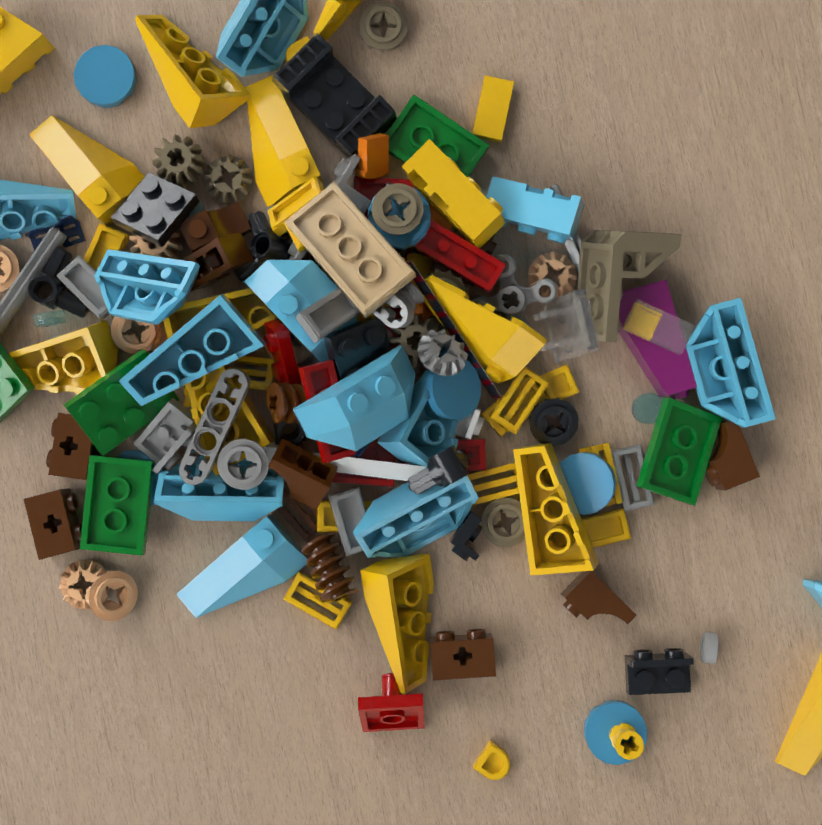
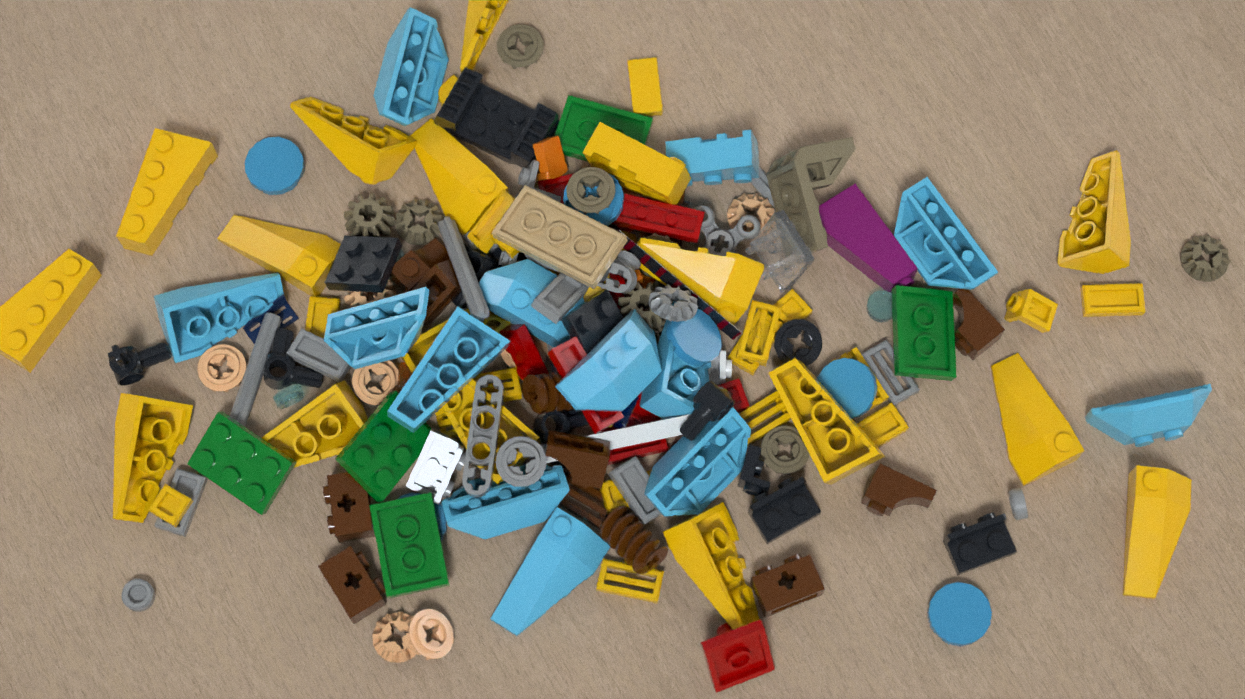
camera: 15 degrees left, 15 degrees down
(248, 250) = (463, 269): none -> light grey axle
(484, 580) = (783, 509): none -> black bracket
(492, 762) = (852, 681): yellow tile -> none
(627, 750) = (977, 605): yellow bush -> none
(658, 327) = (862, 226): clear tile -> none
(751, 578) = (1033, 426): none -> yellow wedge
(791, 460) = (1031, 309): none -> yellow bracket

